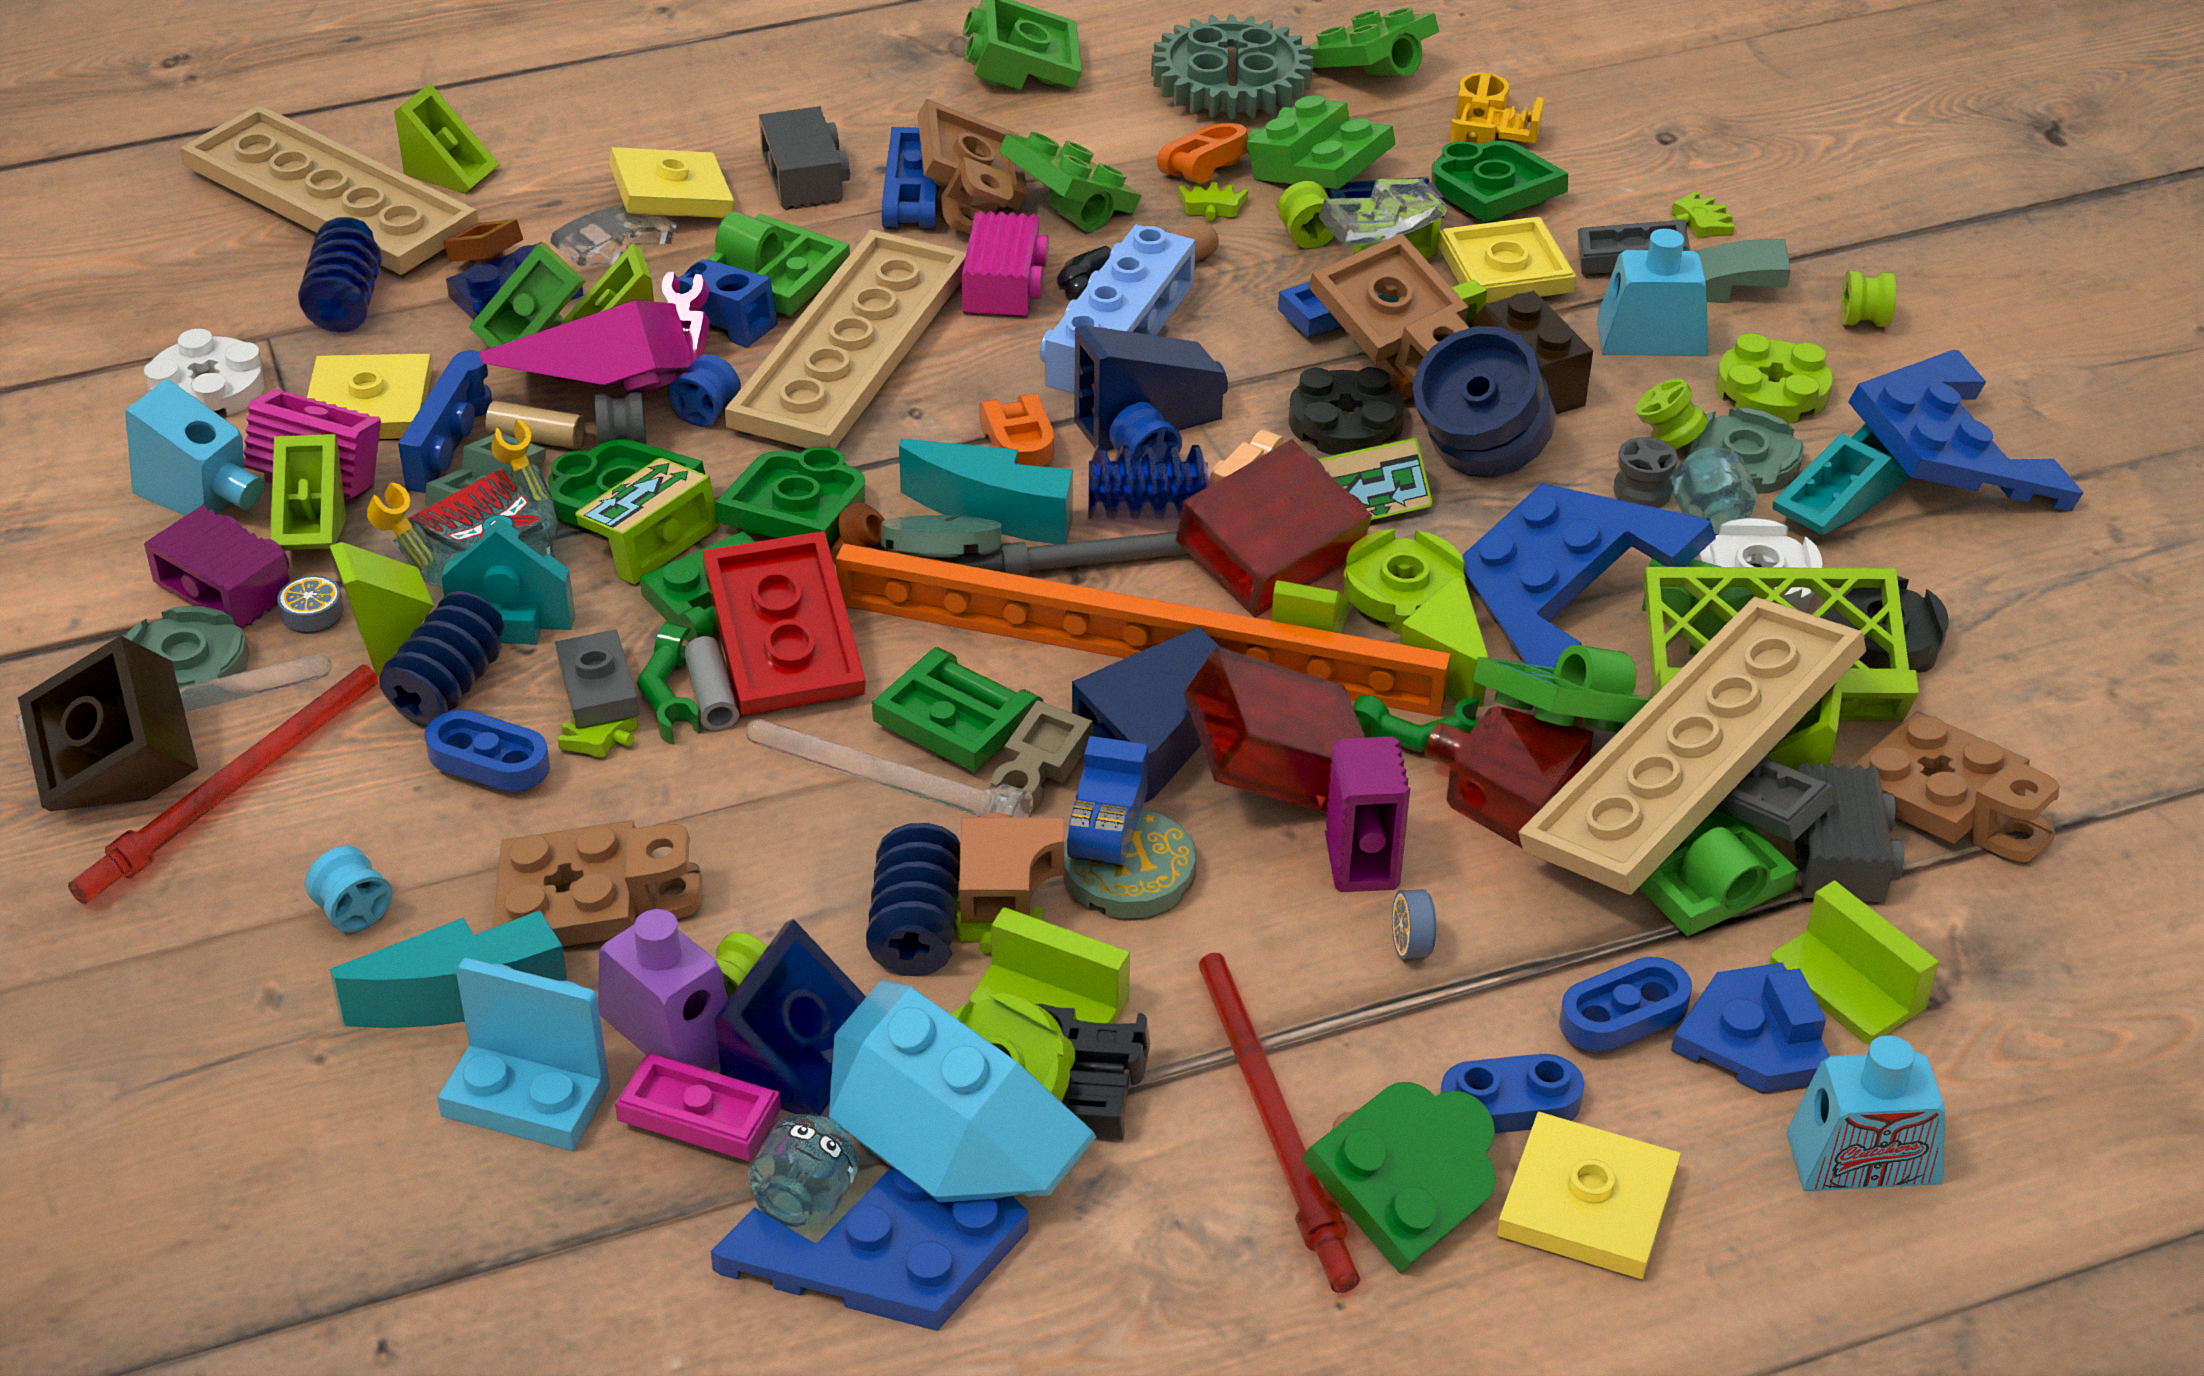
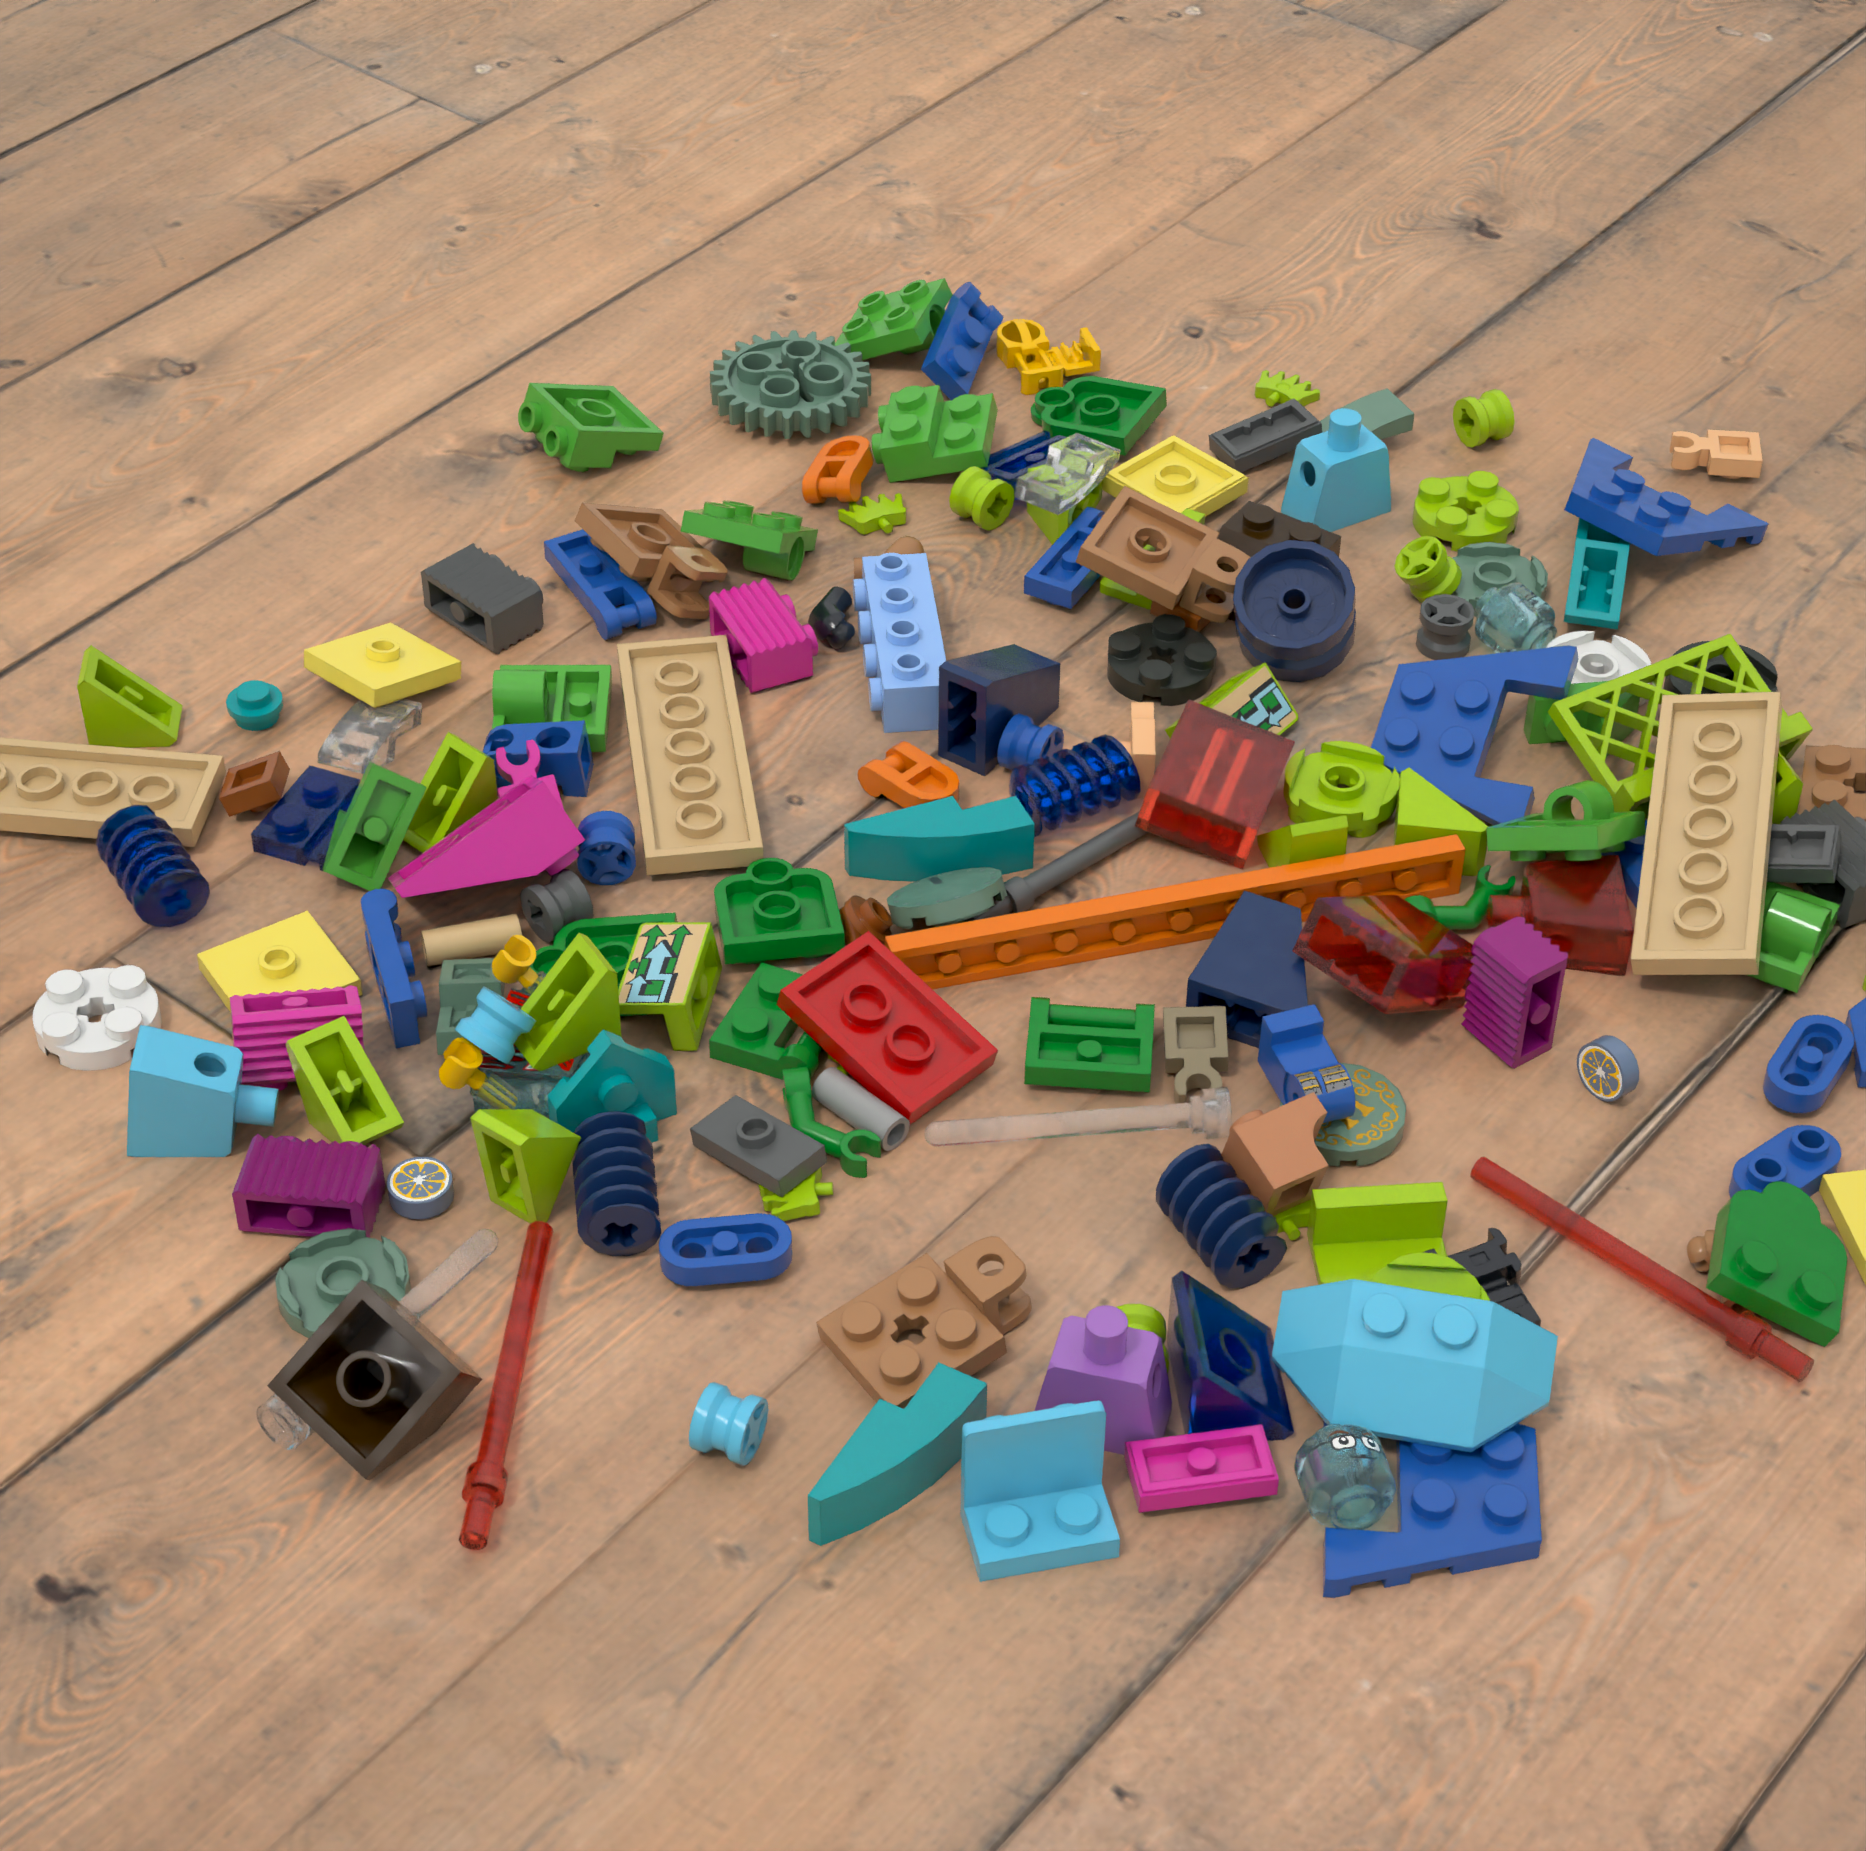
camera: 30 degrees left, 0 degrees up
(435, 485) = (495, 1025): none -> medium azure wheel
(513, 490) = (571, 1006): none -> lime slope
(550, 182) = (255, 705): none -> teal plate
(1415, 77) = (961, 341): none -> blue plate
(2097, 412) = (1722, 451): none -> light nougat plate

